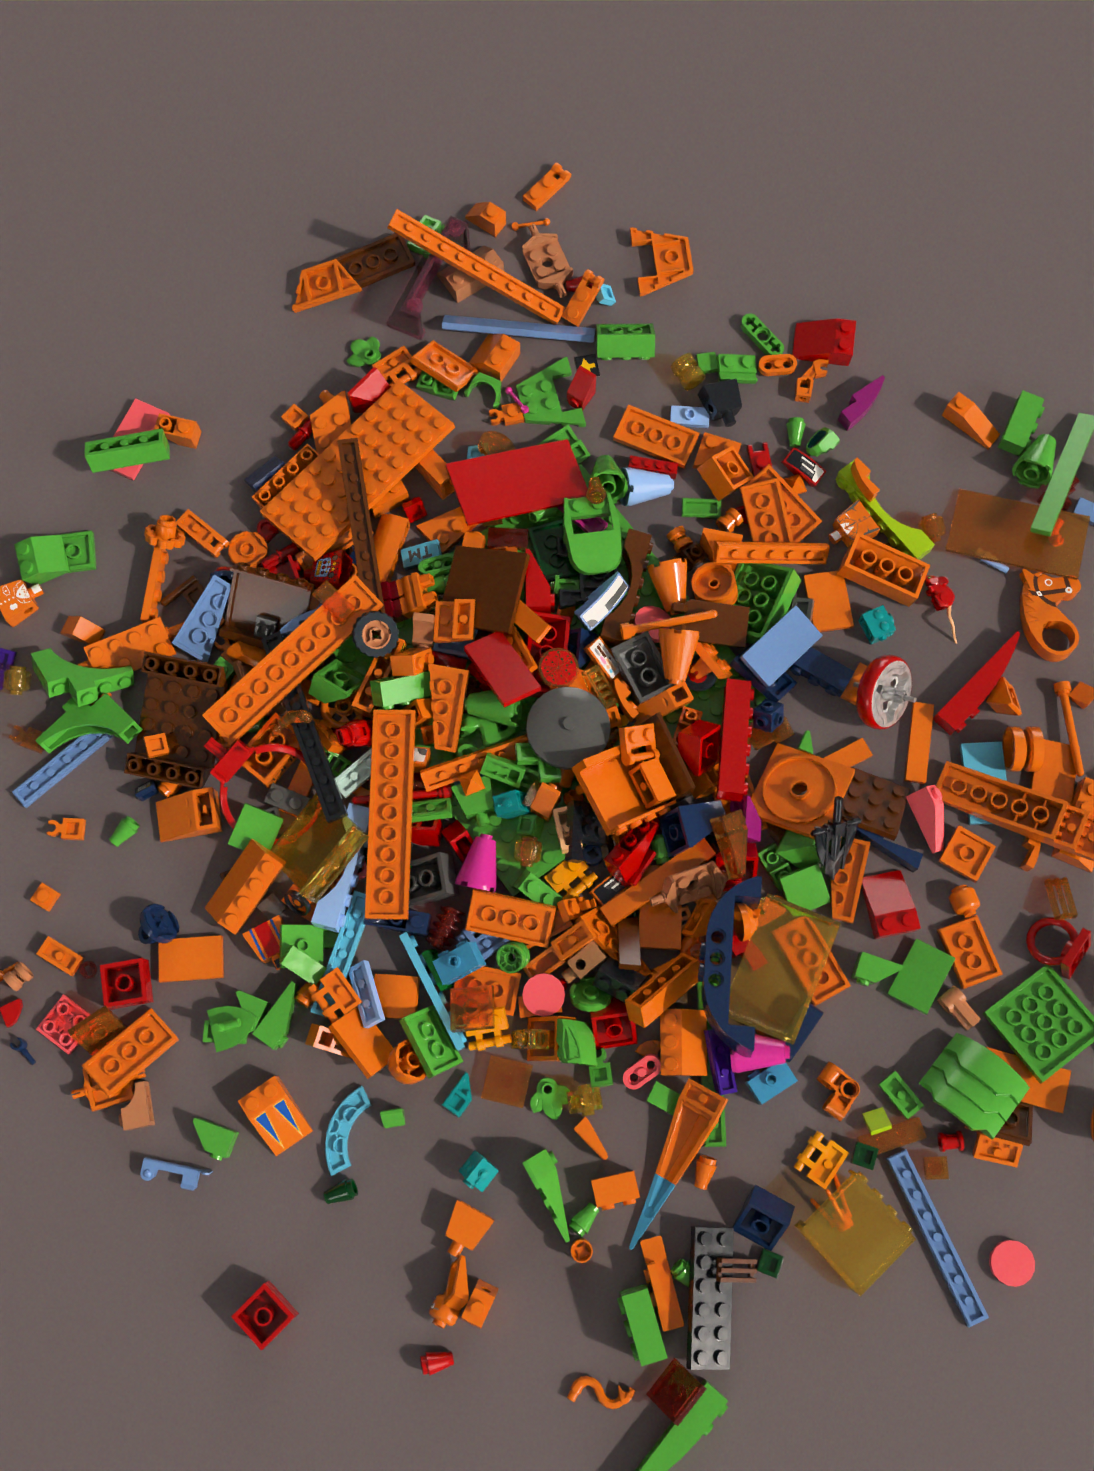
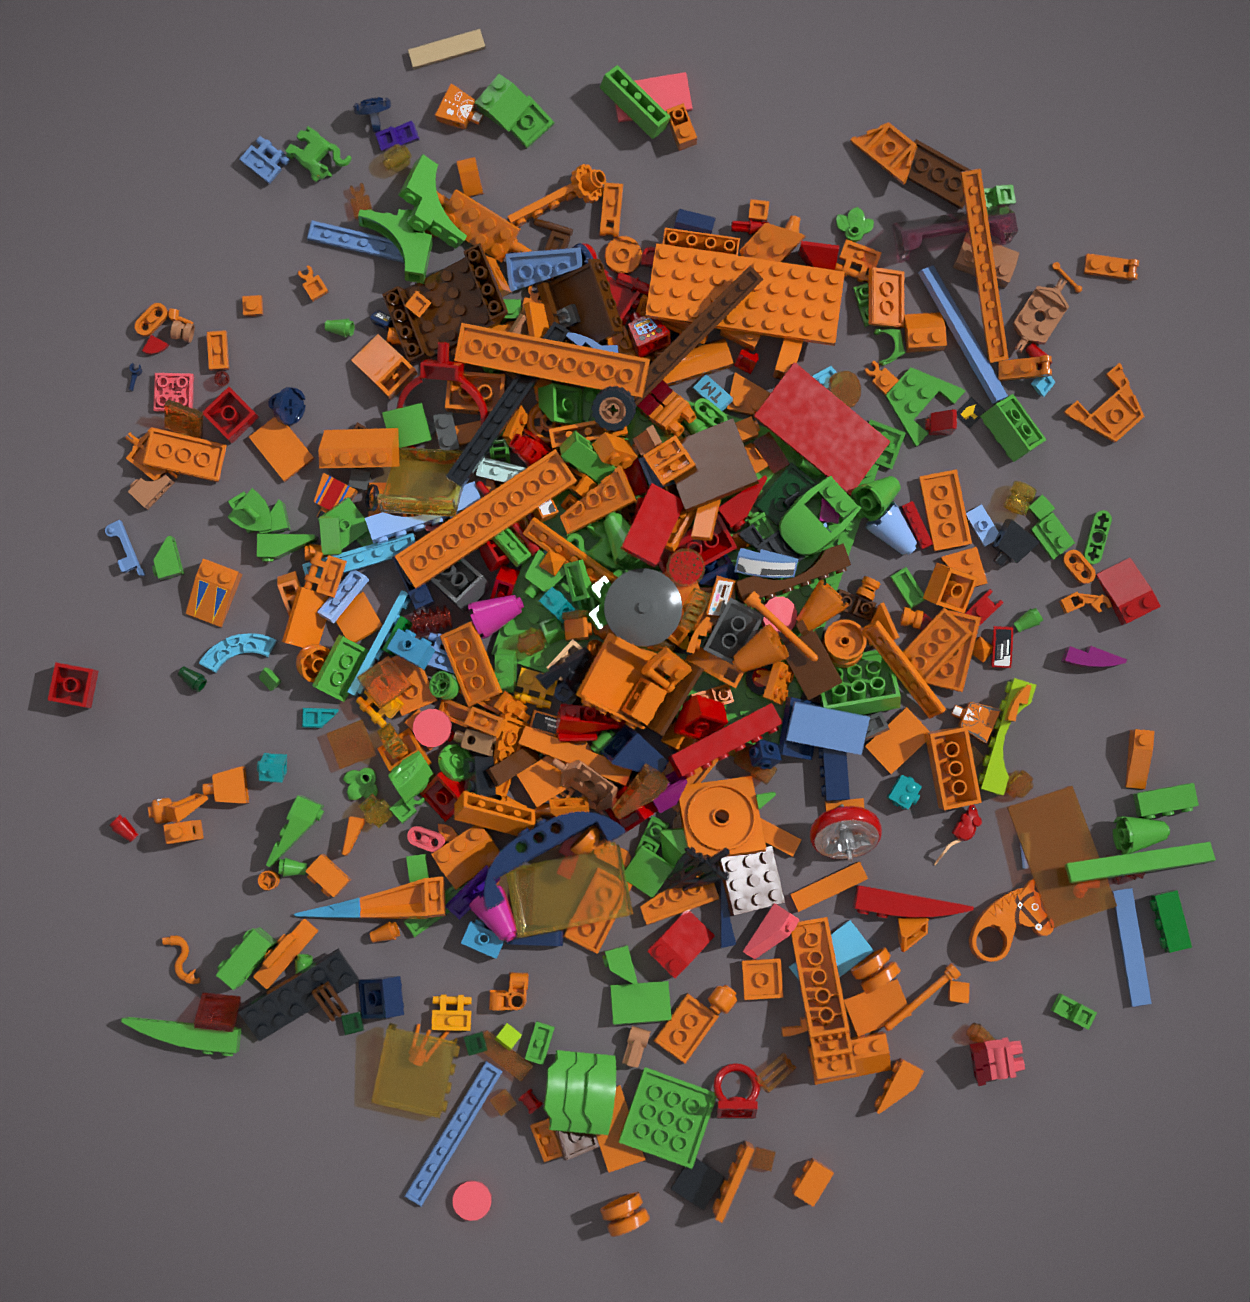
camera: 55 degrees right, 10 degrees up
(291, 716) = (507, 390): clear orange arm -> none
(333, 601) = (616, 358): clear orange tile -> none
(487, 217) = (1046, 238): orange slope -> none
(524, 409) = (893, 388): dark pink hinge -> none
(596, 491) = (852, 497): clear orange cone -> none
(822, 442) = (1032, 647): bright green rock -> none

